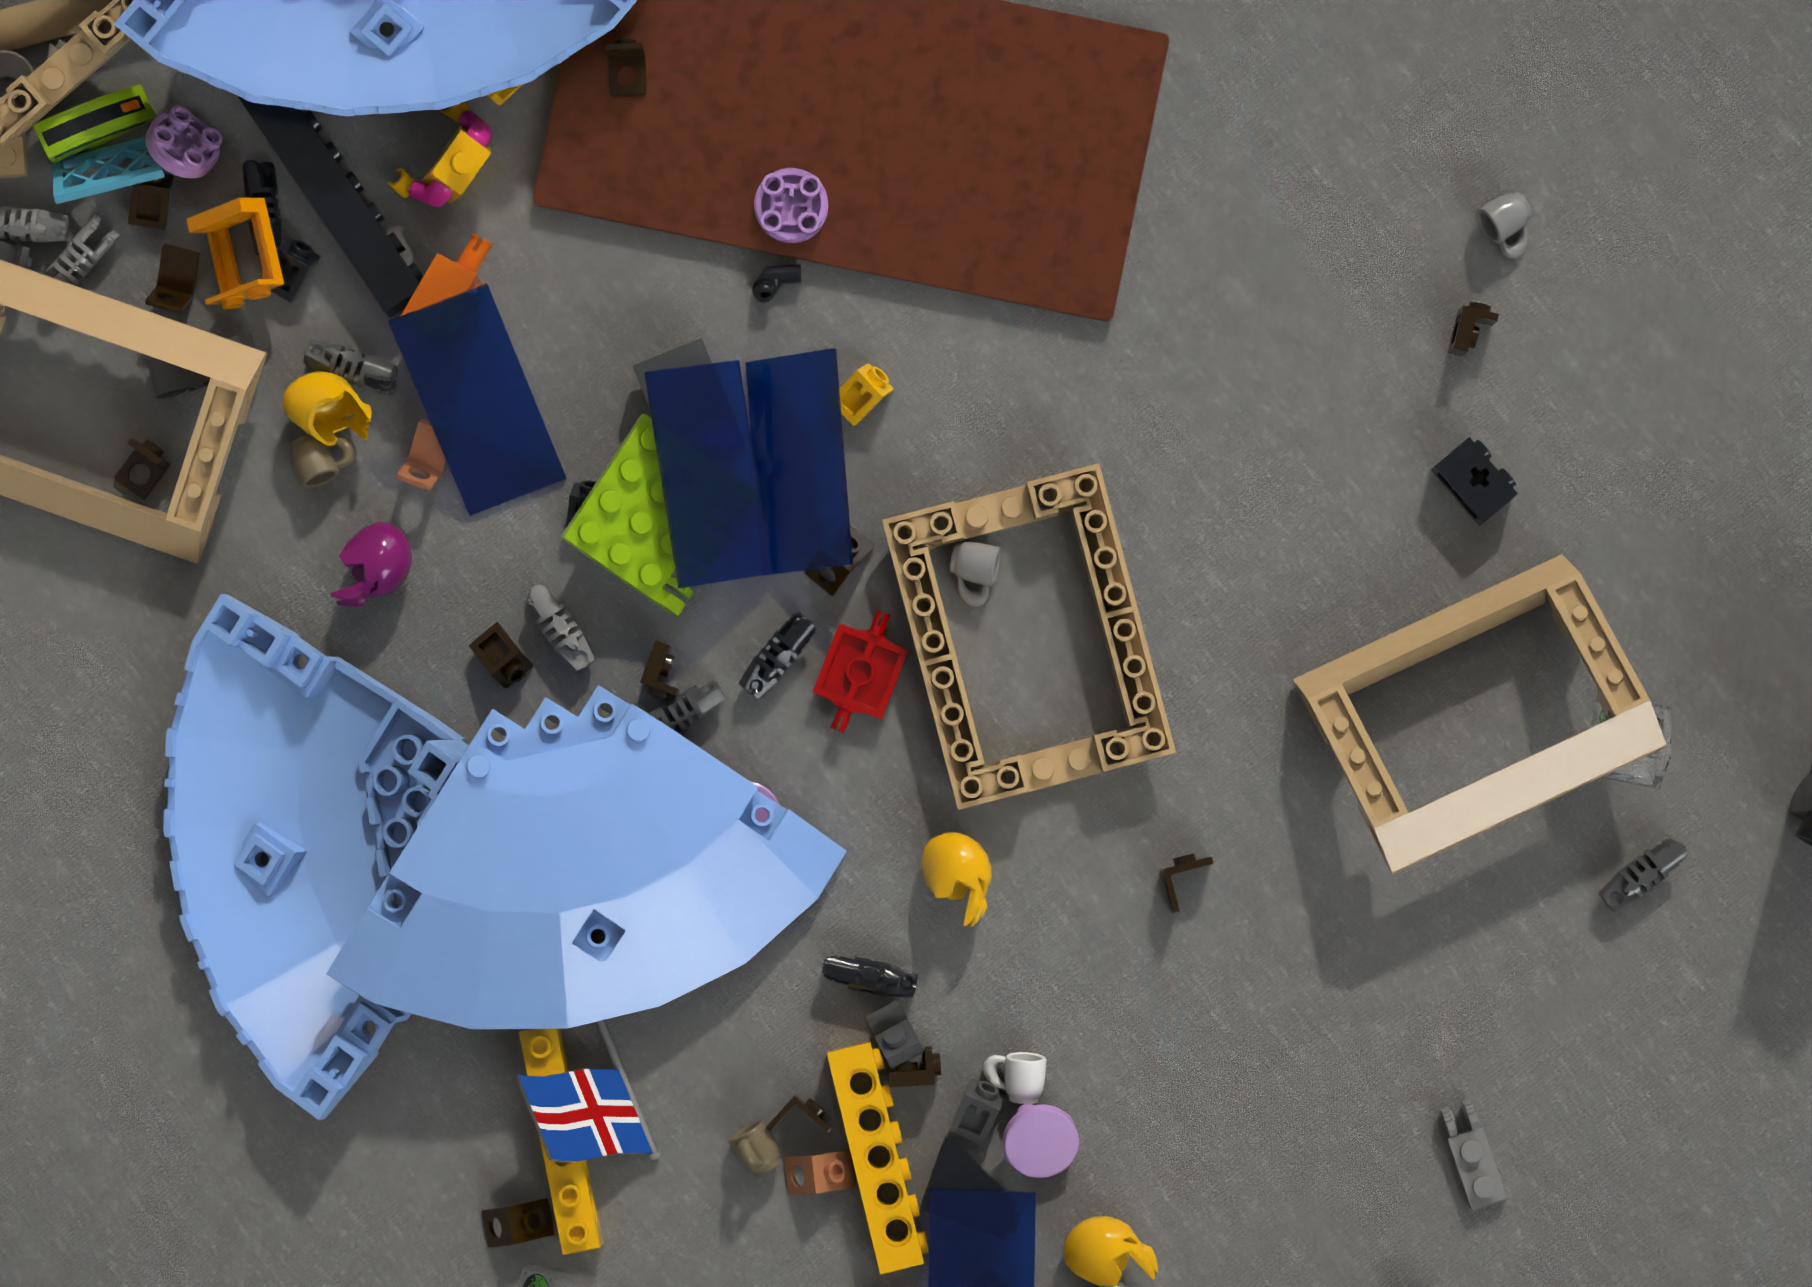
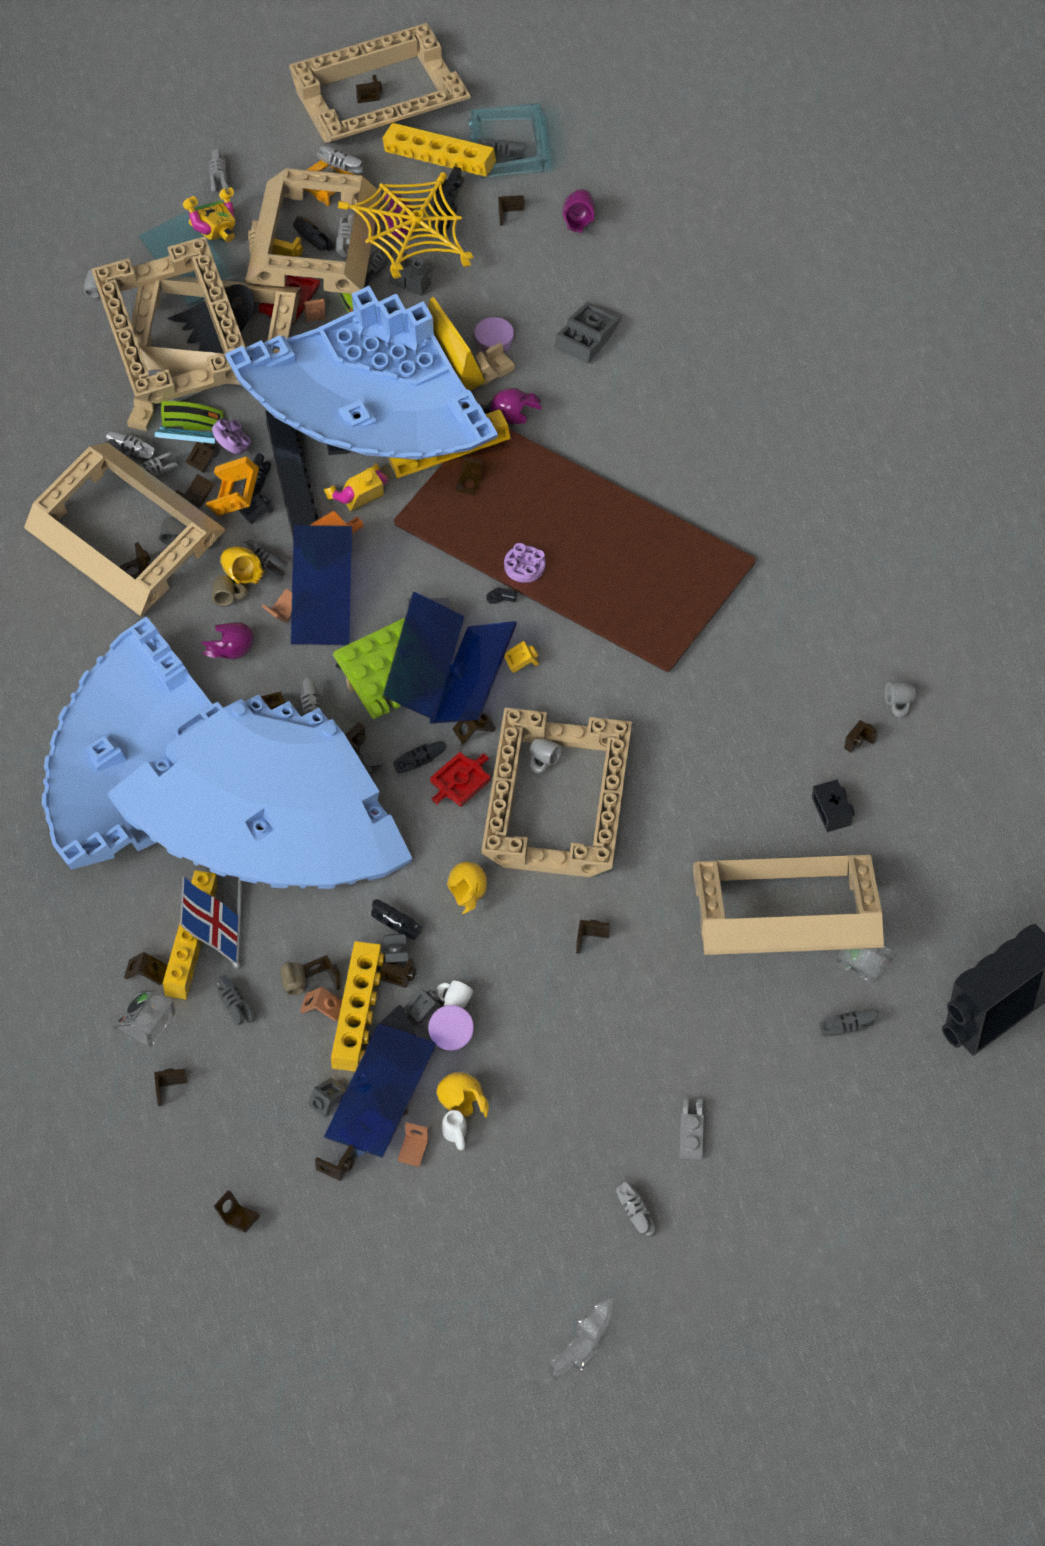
camera: 20 degrees right, 30 degrees down
(681, 1224) = (234, 1000): none -> dark grey hinge

